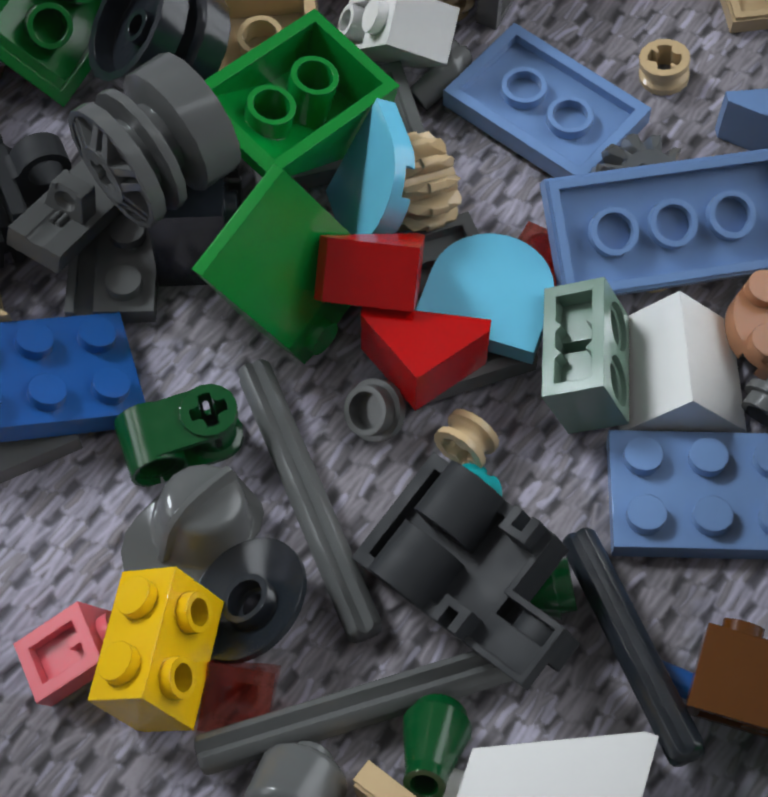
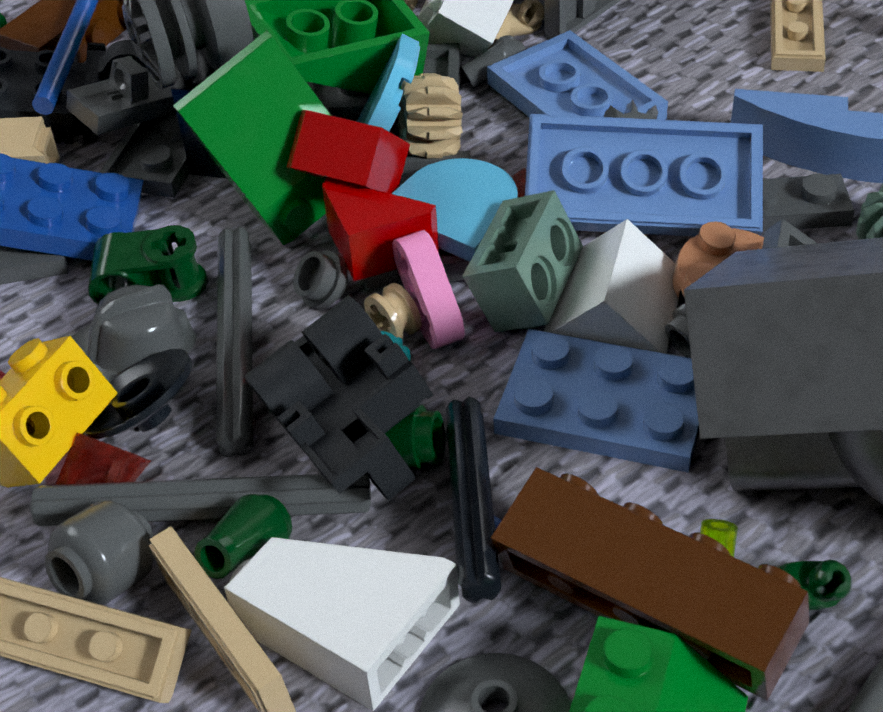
camera: 20 degrees right, 15 degrees down
(498, 401) = (429, 287): none -> bright pink beam
(664, 81) = (696, 80): tan bush -> none

